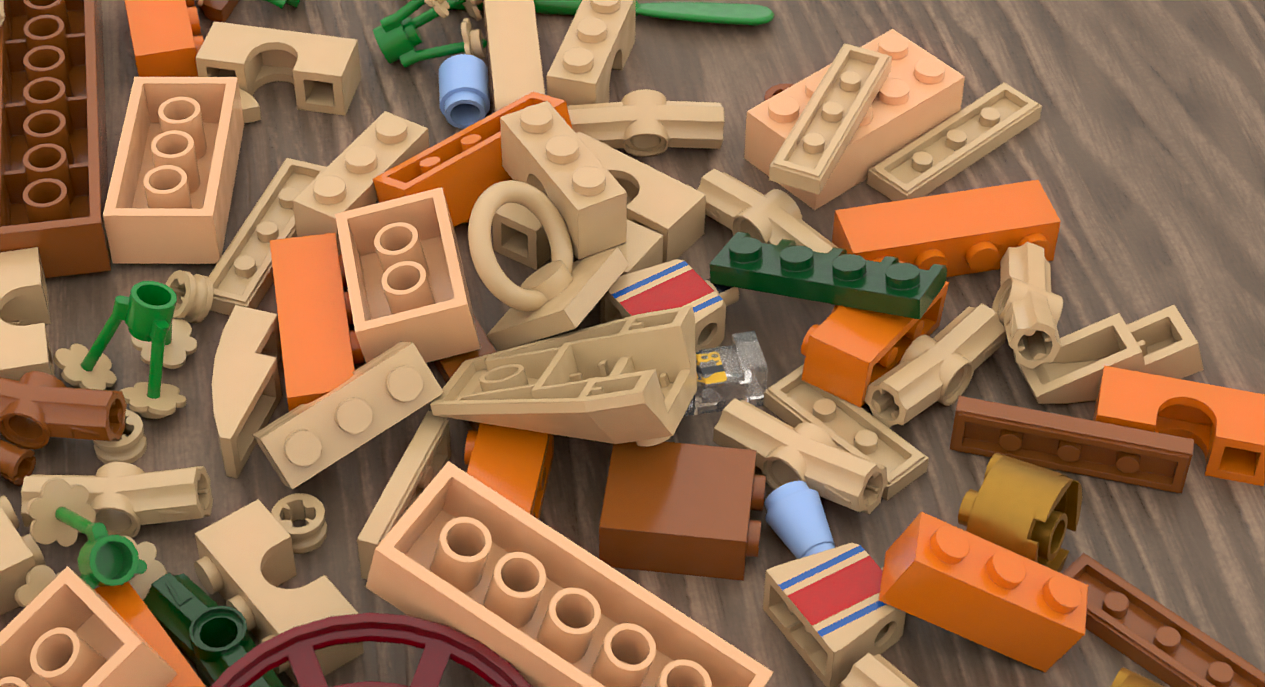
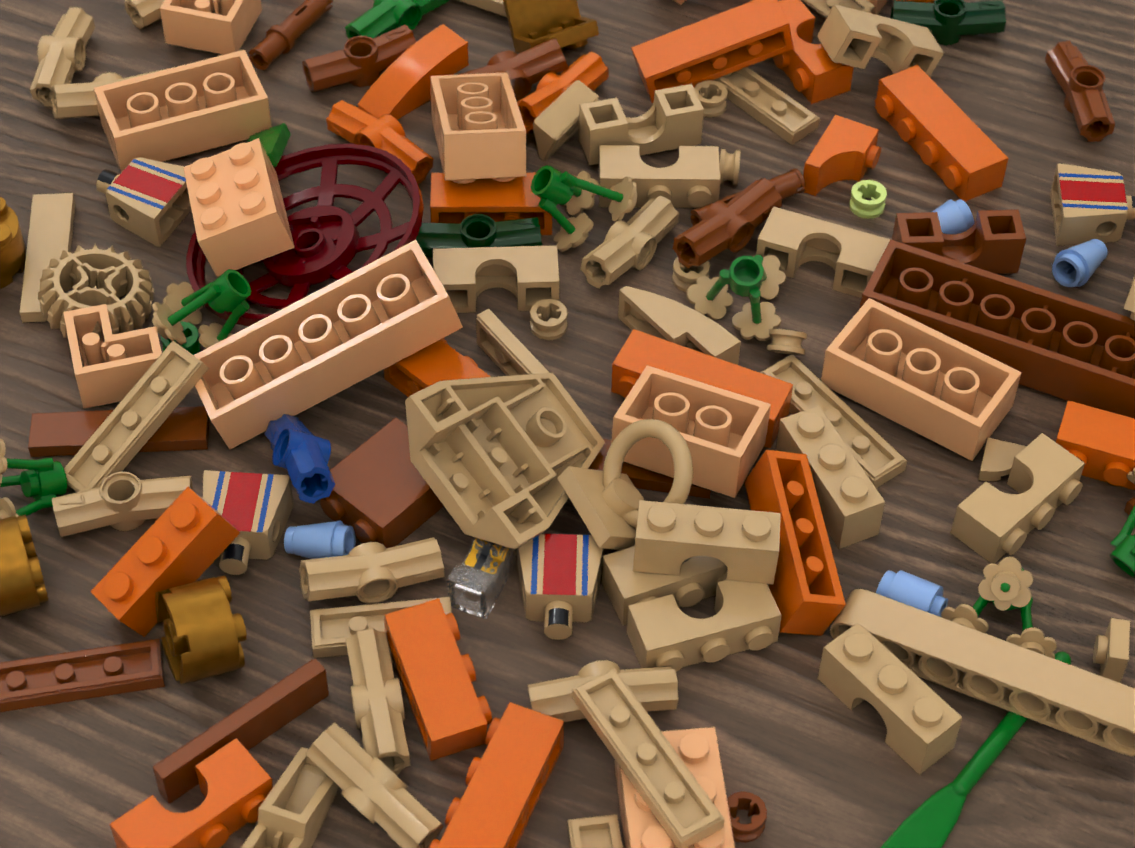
camera: 125 degrees right, 5 degrees up
(349, 415) = (586, 333): tan arch -> none
(650, 124) = (776, 688): tan piece -> none
(737, 564) = (303, 457): none -> blue piece
(827, 278) = (490, 652): dark green hinge -> none

